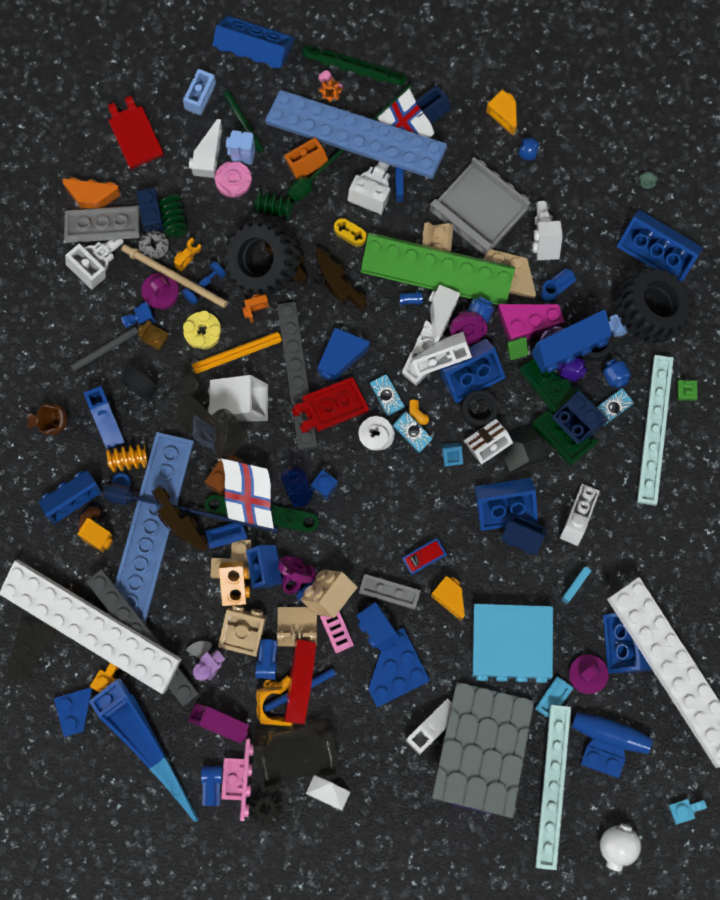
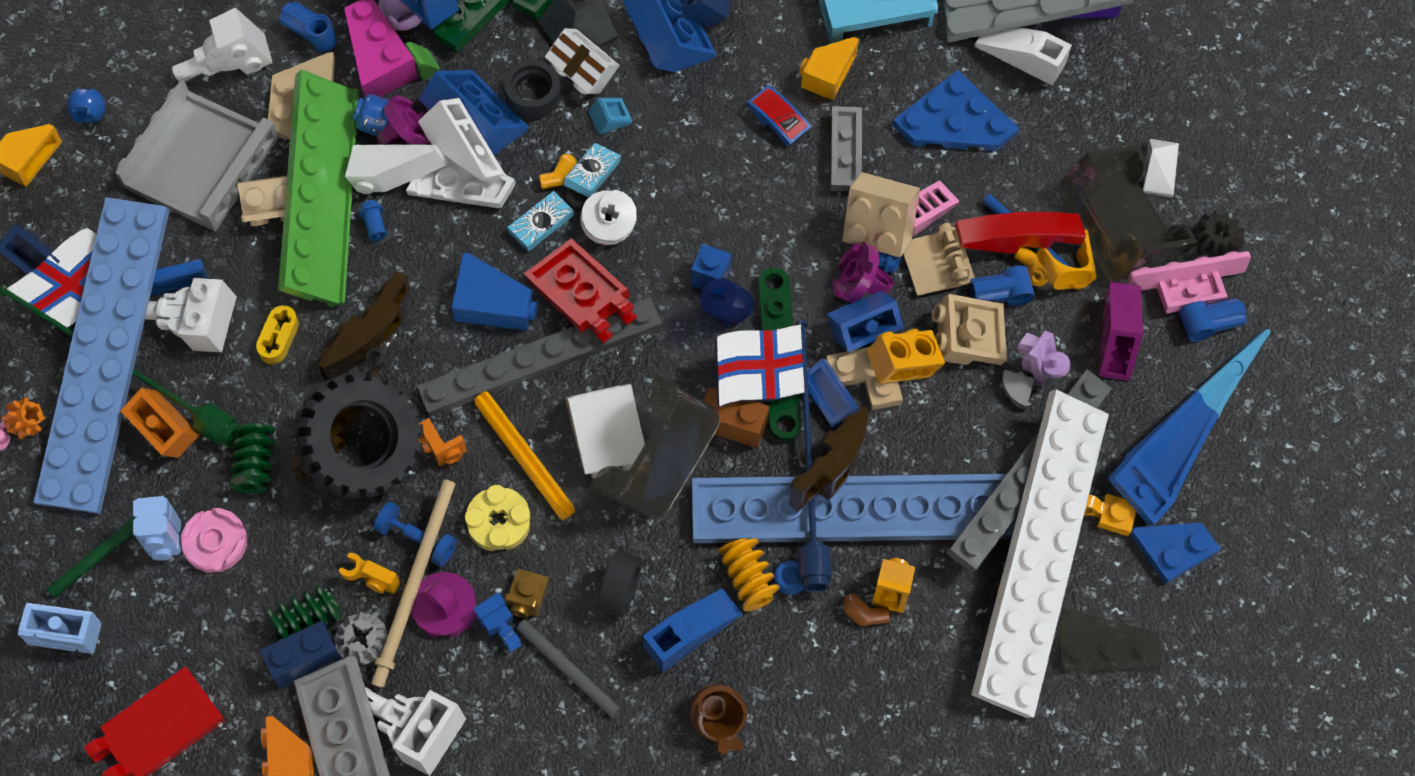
camera: 105 degrees left, 10 degrees down
(69, 496) = (841, 642): blue slope -> none
(206, 154) = (179, 589): white slope -> none
(378, 627) = (906, 146): blue brick -> none

